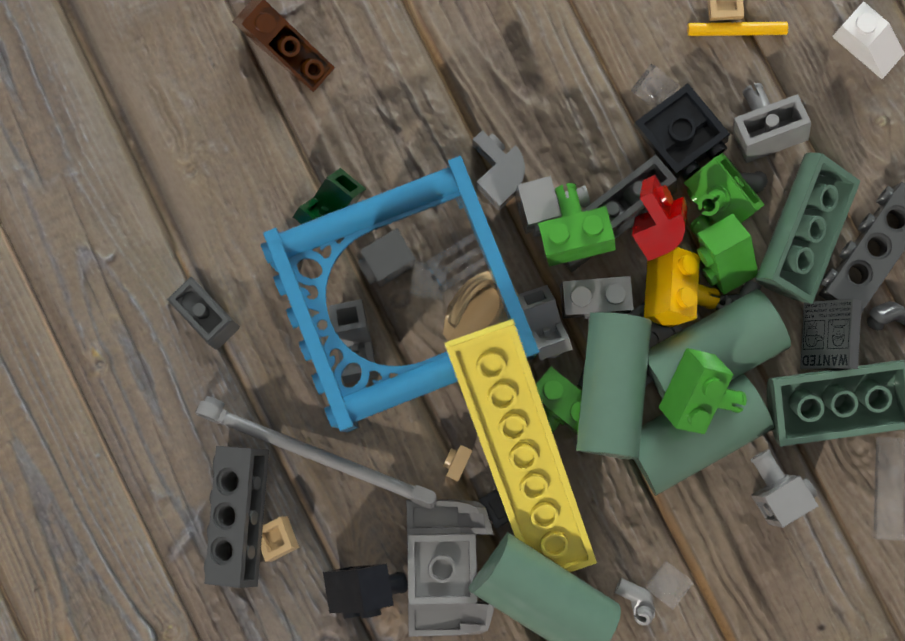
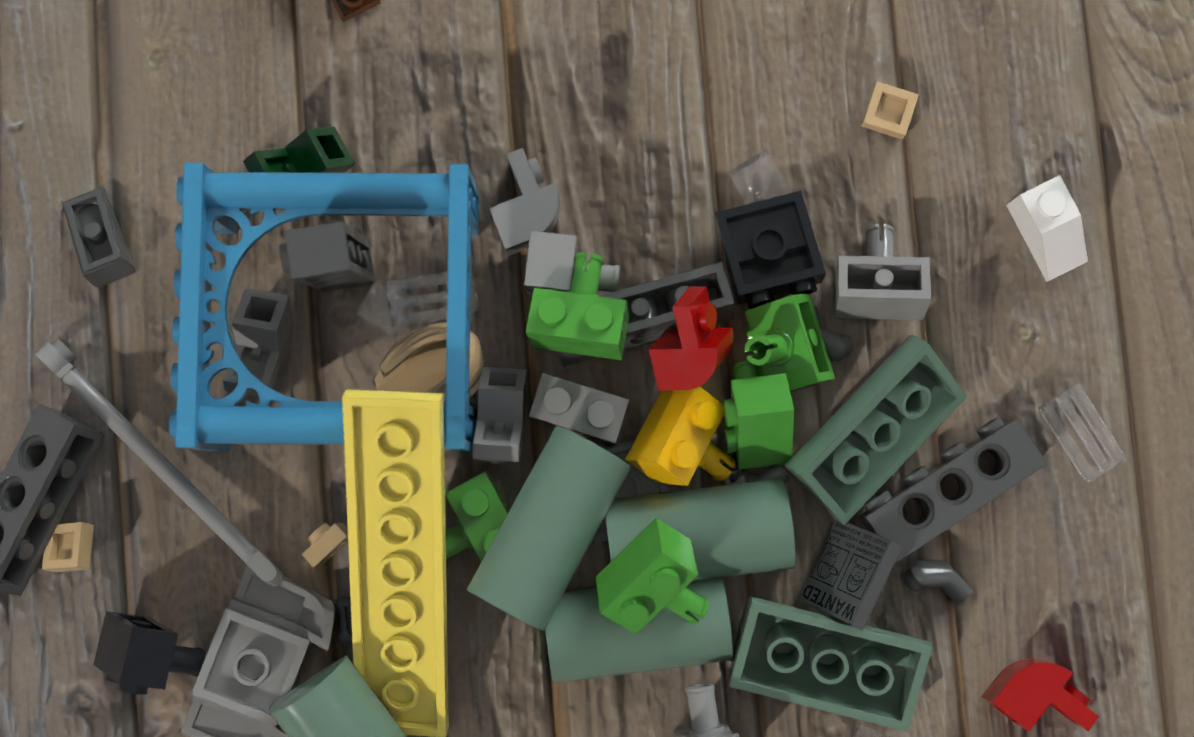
camera: 25 degrees right, 0 degrees up
(737, 28) = (892, 149): yellow bar -> none

